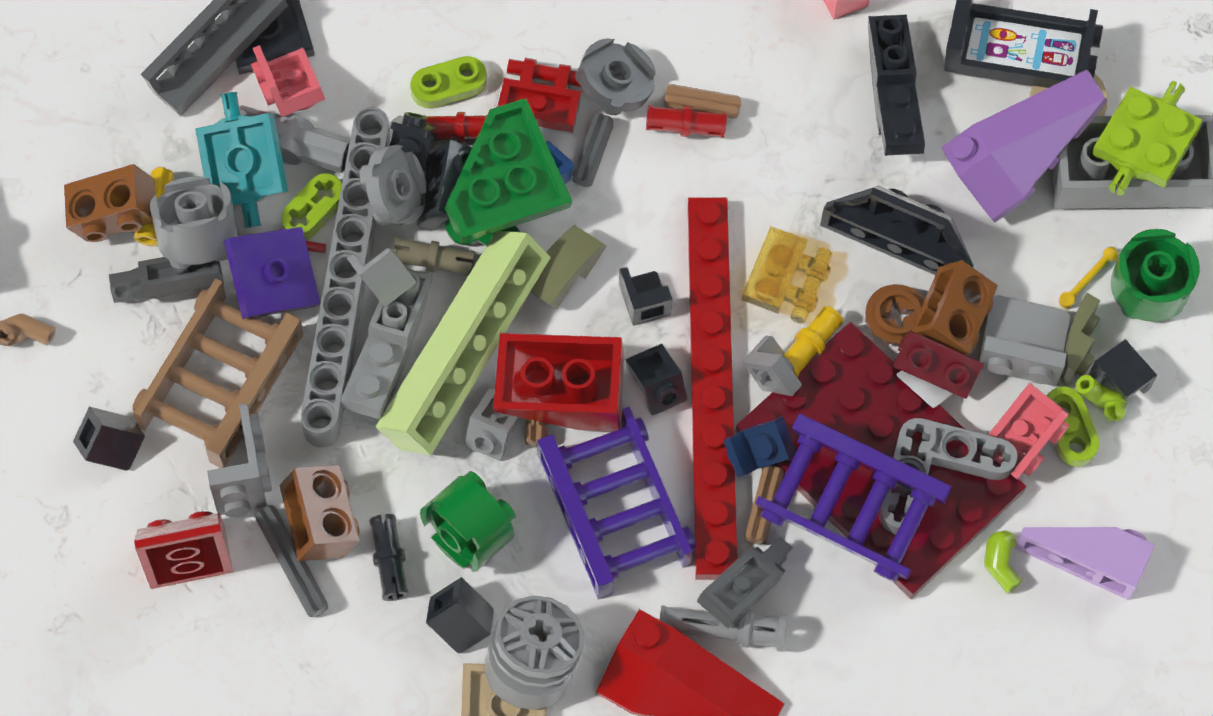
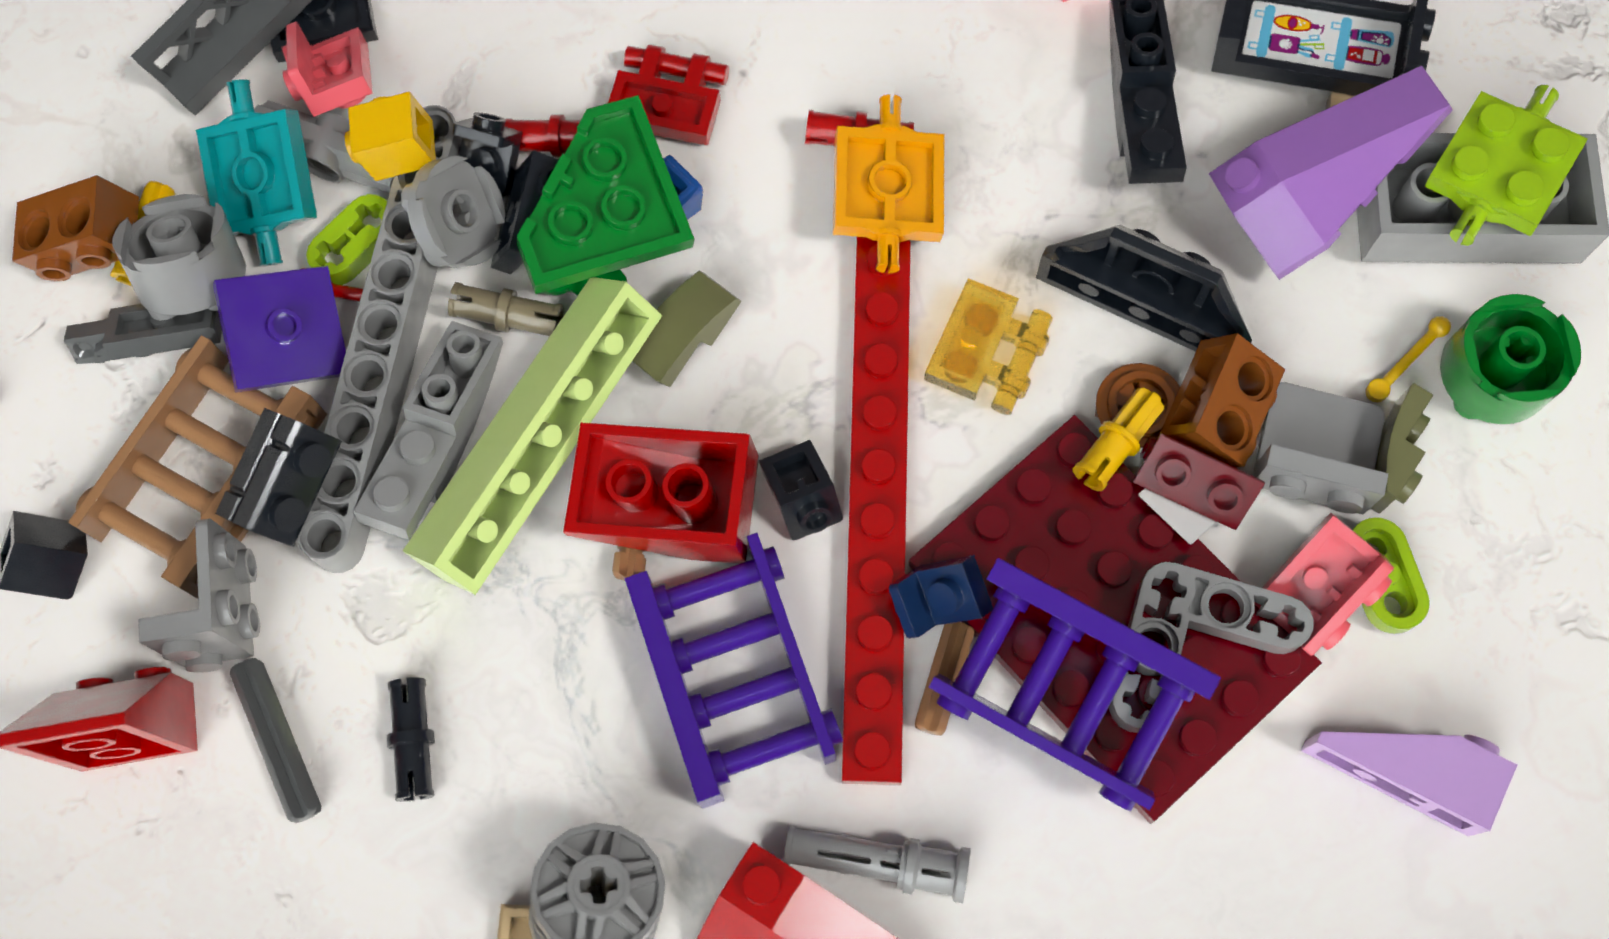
camera: 10 degrees right, 5 degrees up
(287, 375) = (278, 477): none -> black brick
(310, 513) = (299, 673): dark orange brick -> none
(345, 131) = (390, 136): none -> yellow brick
(384, 276) = (422, 337): light grey panel -> none
(449, 82) = (547, 77): lime plate -> none
(460, 615) = (501, 832): black panel -> none
(469, 521) = (519, 696): green brick -> none
(489, 430) = (563, 560): light grey bracket -> none
(592, 150) = (732, 170): dark grey axle -> none
(605, 90) = (760, 93): dark grey plate -> none
(644, 296) = (791, 372): black panel -> none
(702, 100) = (853, 98): medium nougat axle -> none
(710, 159) = (888, 184): none -> light orange plate
(745, 582) = (910, 801): dark grey hinge -> none
(771, 368) = (962, 479): light grey bracket -> none
(813, 338) = (1016, 443): yellow pin -> none
(881, 336) = (1119, 438): none -> yellow axle
(997, 560) = (1279, 769): lime arm -> none
(1102, 397) = (1433, 533): lime arm -> none
(1124, 370) = (1465, 496): black panel -> none

